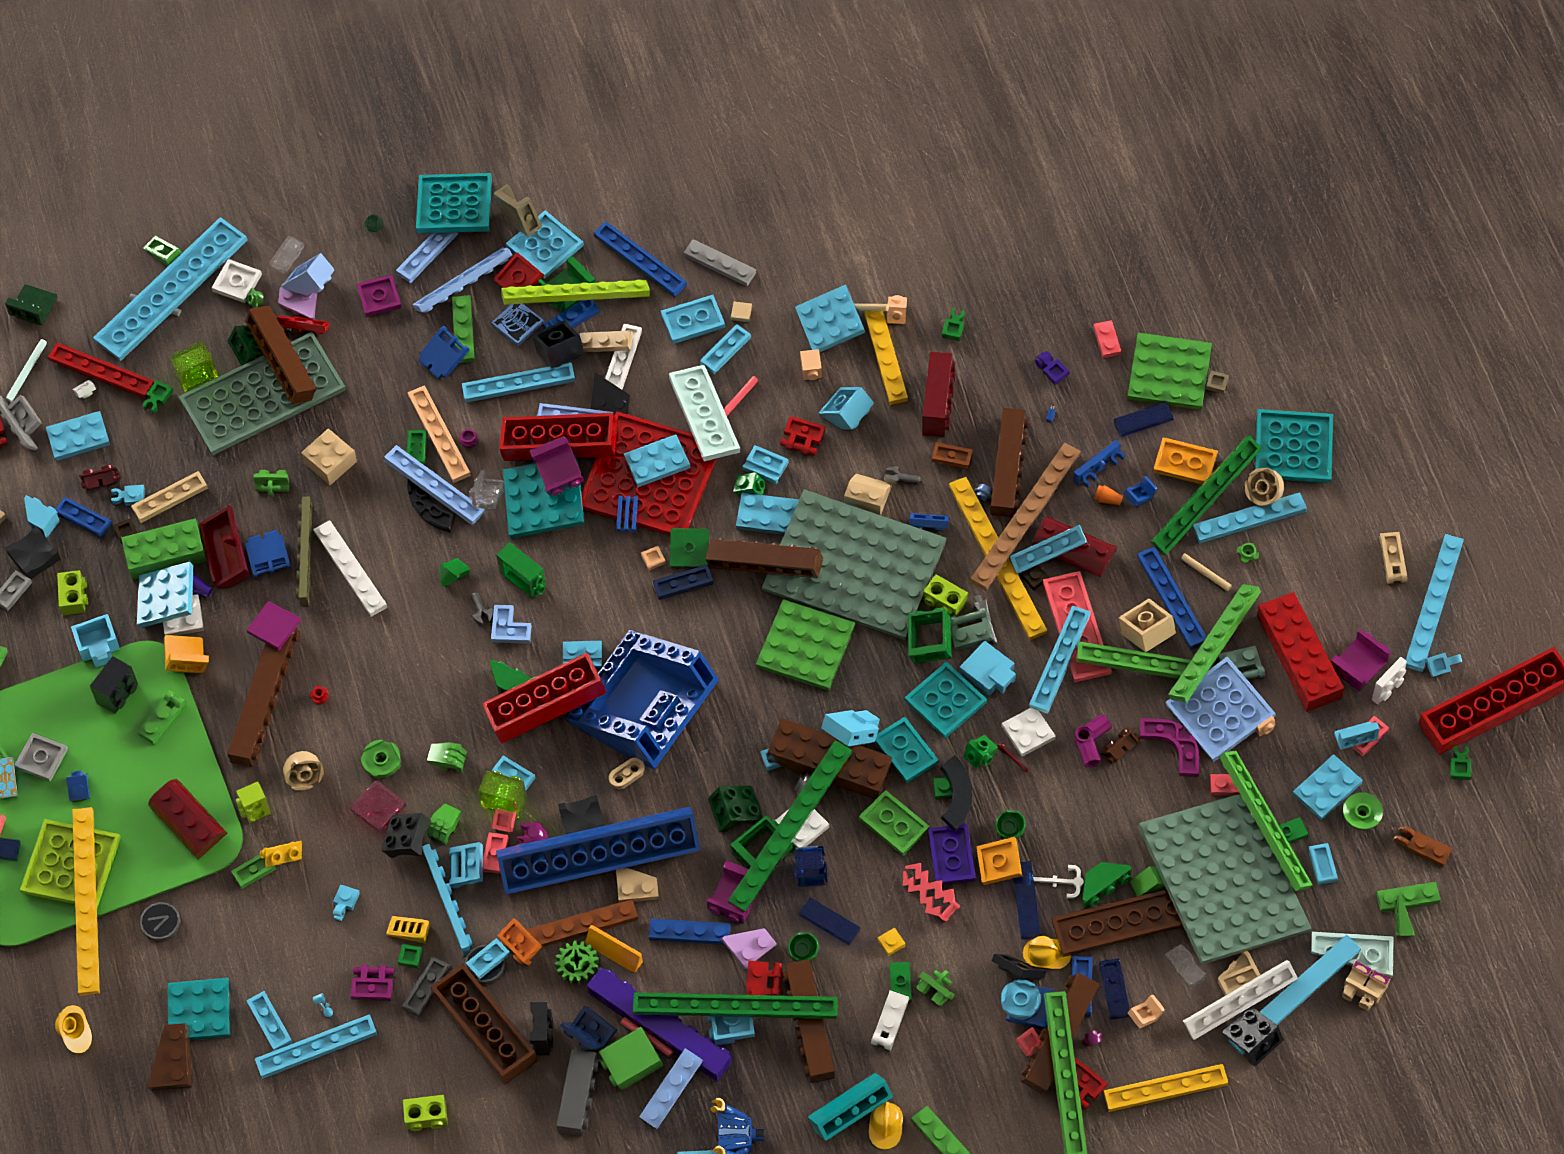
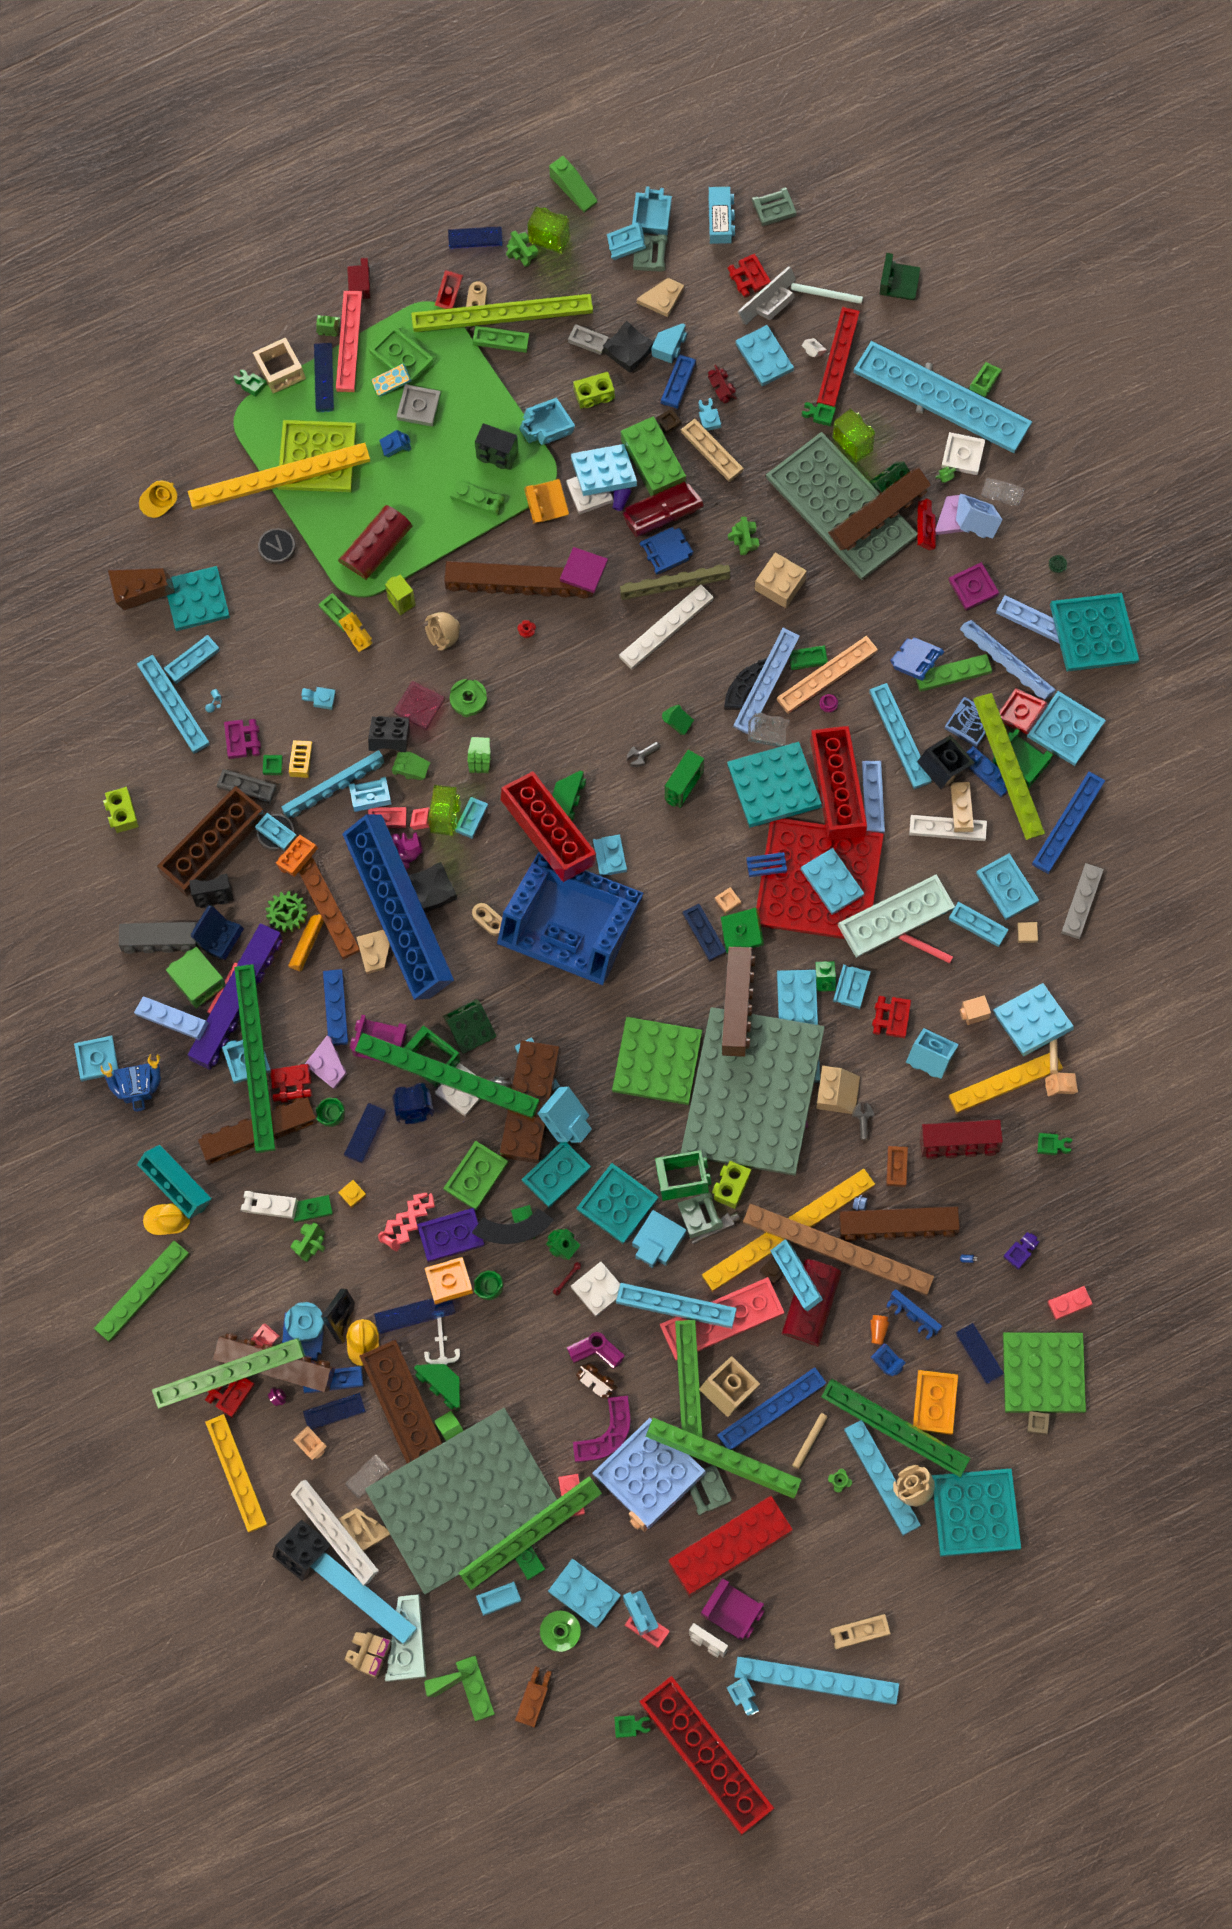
camera: 80 degrees right, 10 degrees up
(505, 630) = (623, 778): light blue plate -> none
(517, 214) = (1095, 685): dark tan panel -> none
(557, 466) = (798, 787): magenta panel -> none
(608, 396) = (898, 823): black wing -> none
(921, 521) = (816, 1155): blue plate -> none

